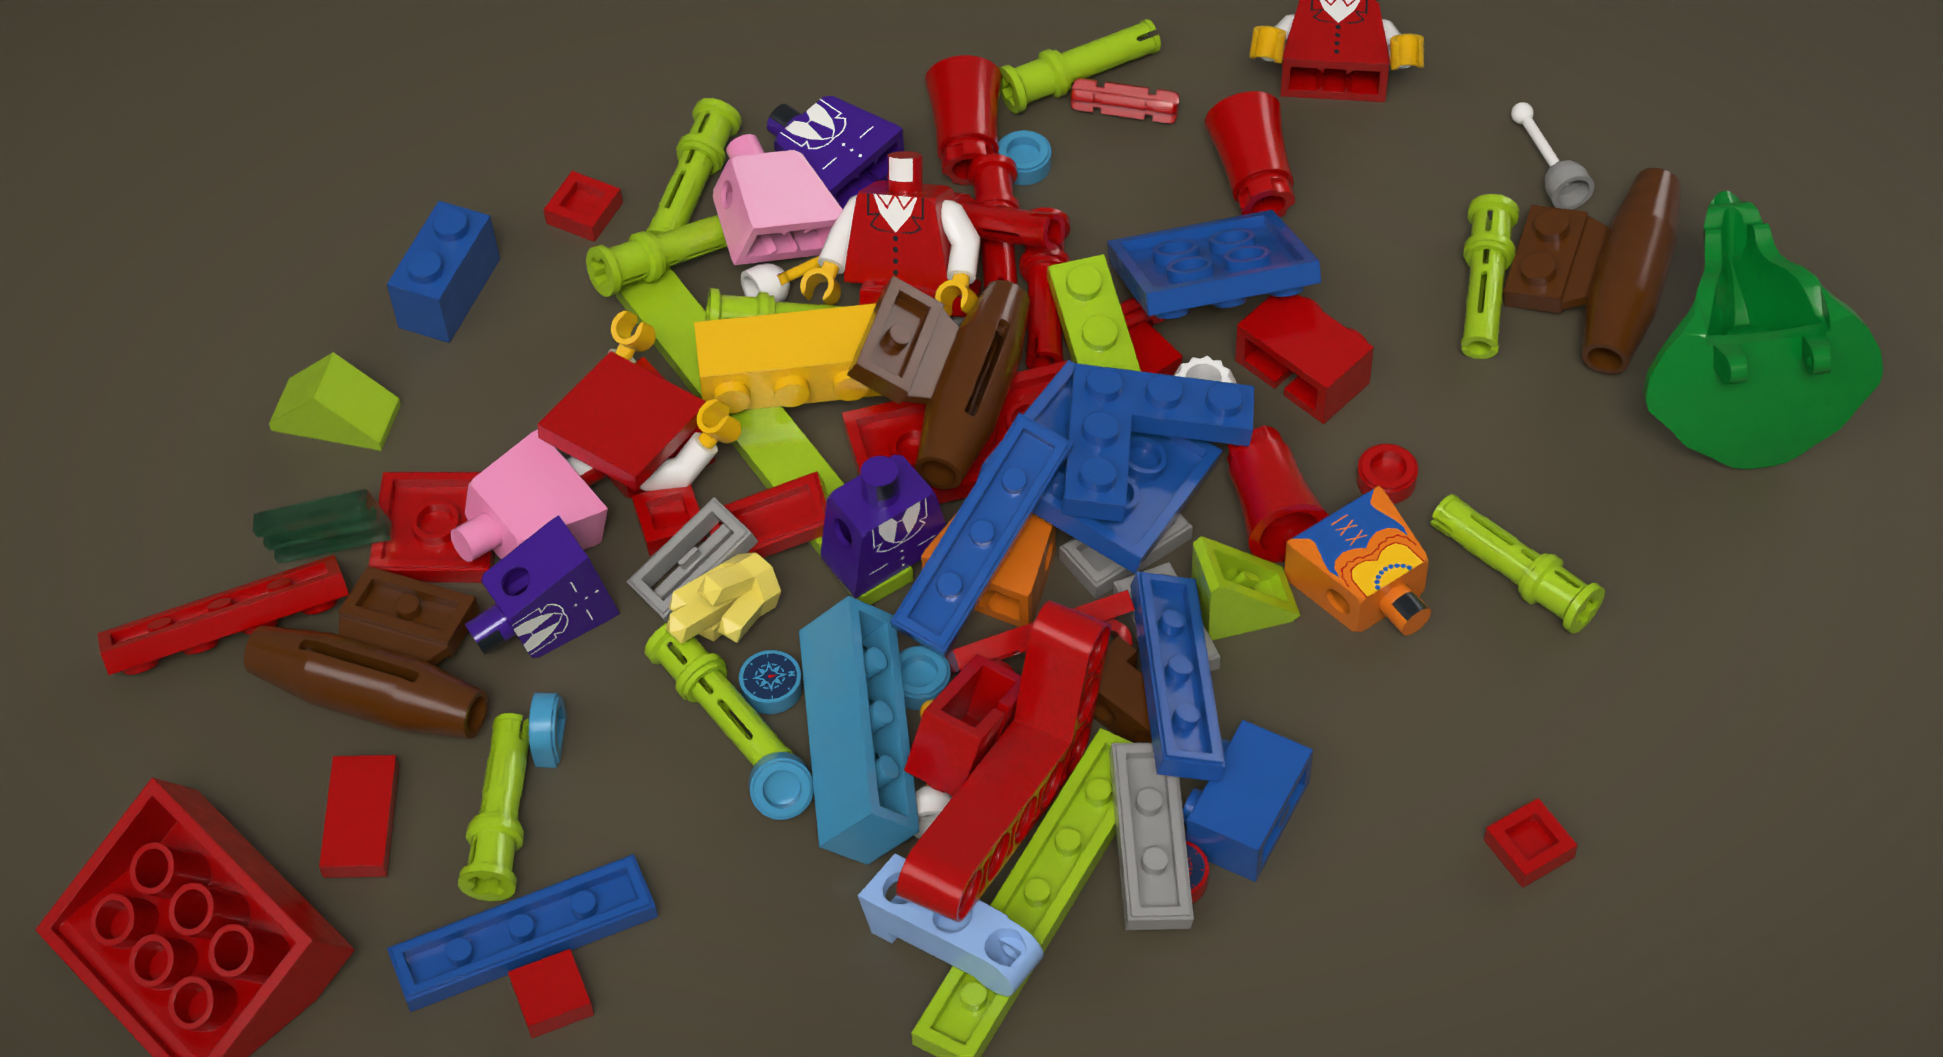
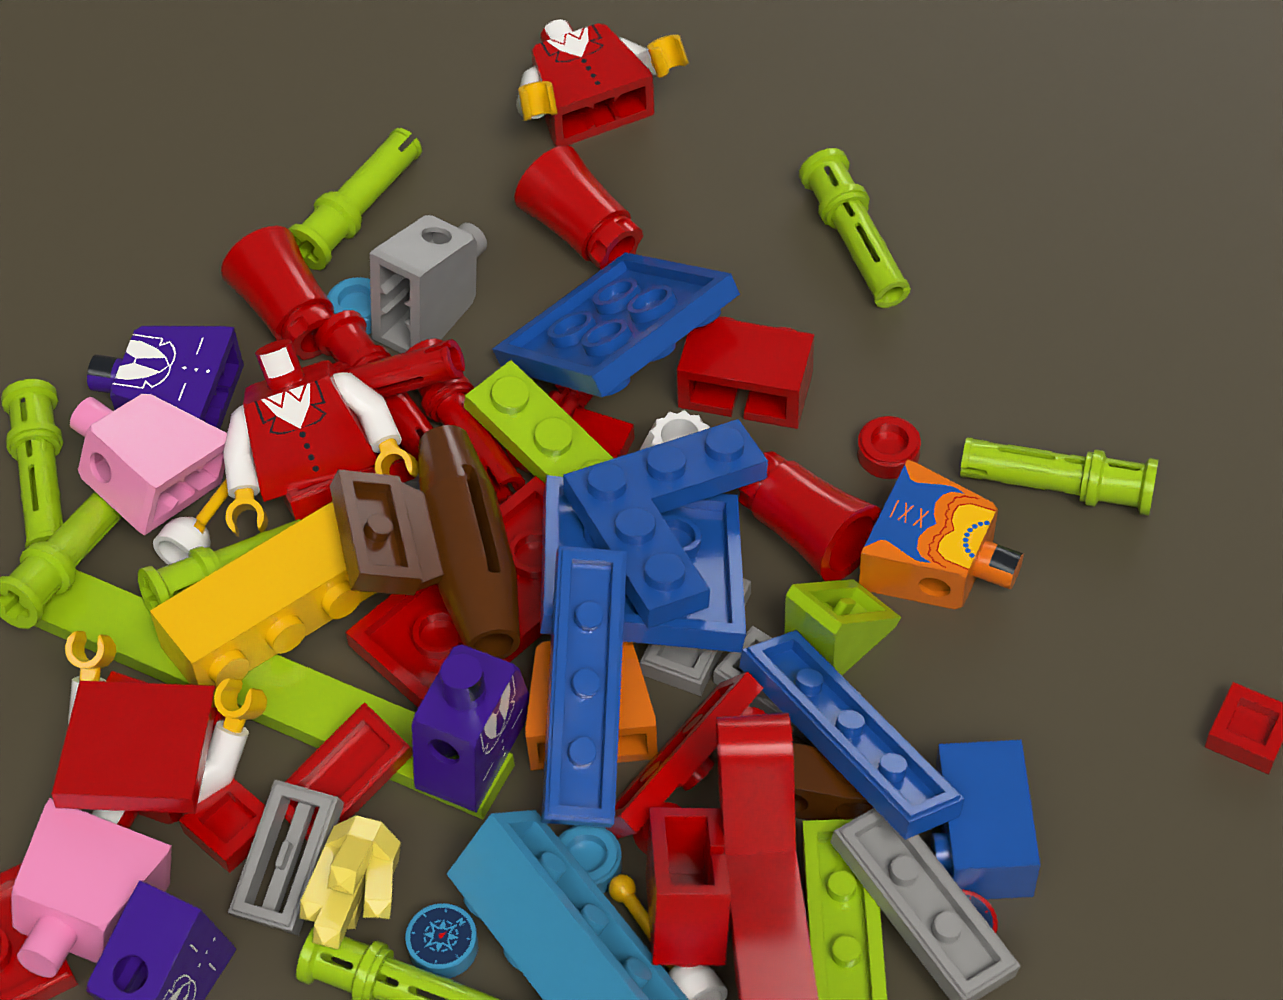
camera: 30 degrees left, 0 degrees up
(1083, 157) = (423, 281): none -> light grey torso
(1125, 100) = (382, 222): axle -> none
(1565, 181) = (865, 114): light grey hinge -> none
(1612, 270) = (962, 170): reddish brown plate -> none
(1762, 354) = (1170, 180): green animal -> none

